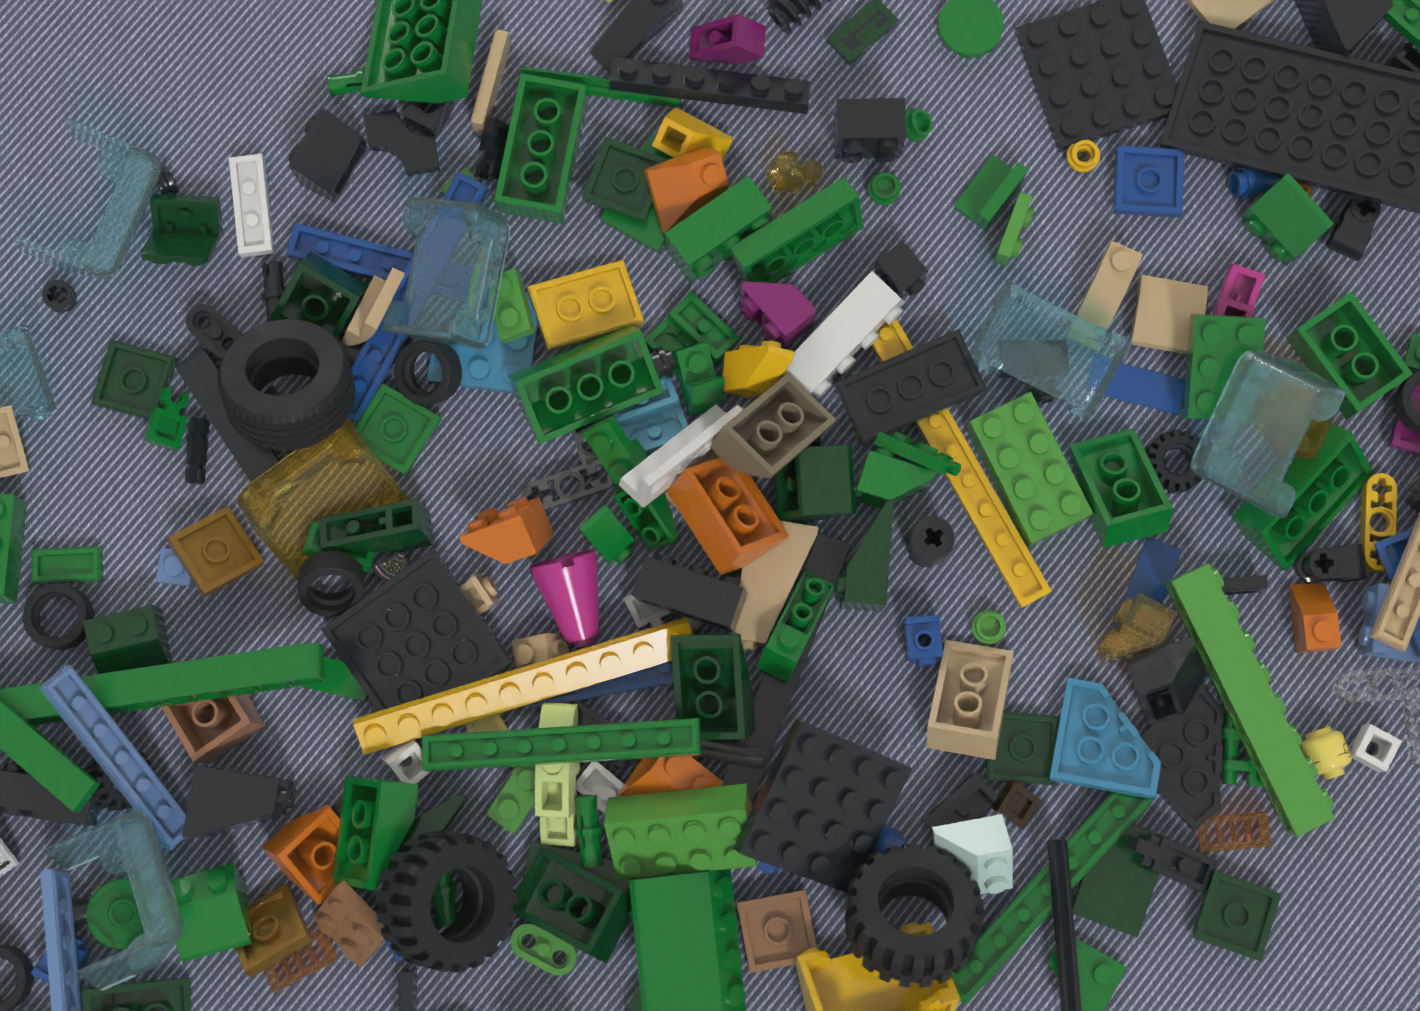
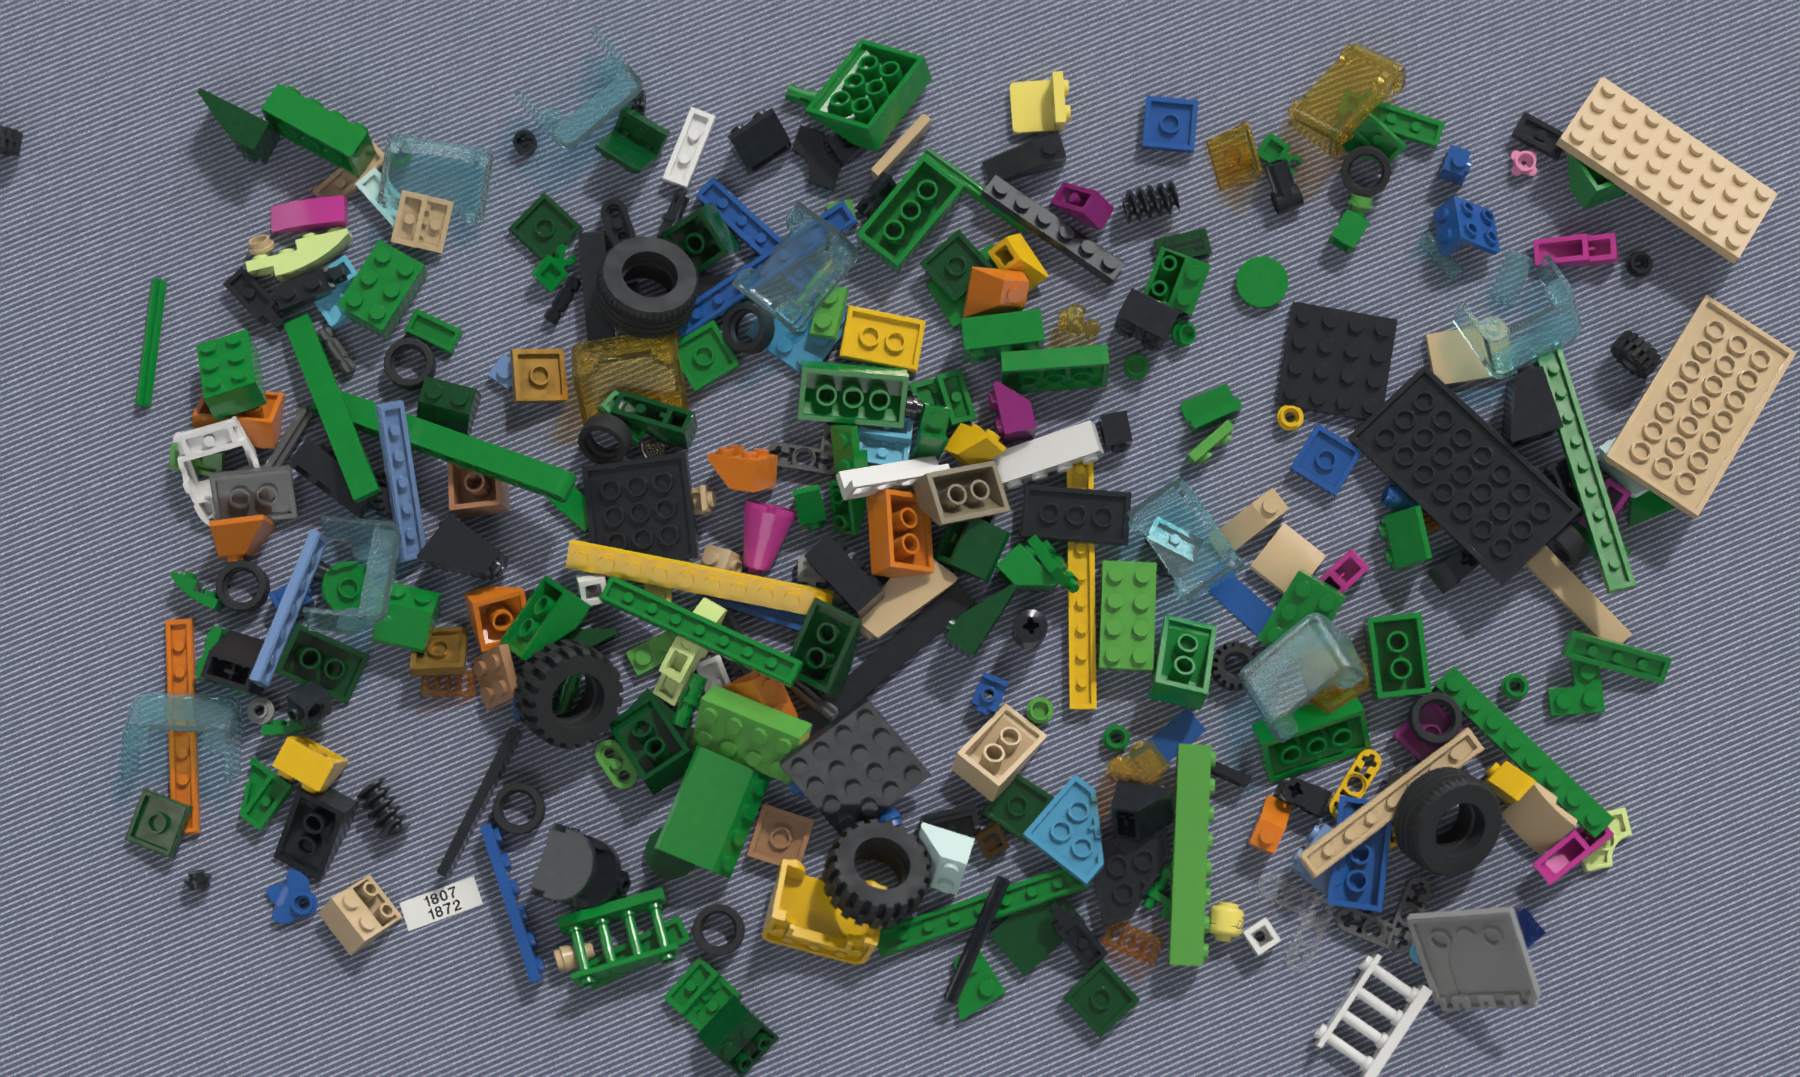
camera: 30 degrees right, 0 degrees up
(372, 308) = (733, 264): tan slope -> none
(795, 626) = (905, 637): green slope -> none
(880, 66) = (1177, 280): none -> green slope
(1099, 608) = (1115, 747): none -> green plate

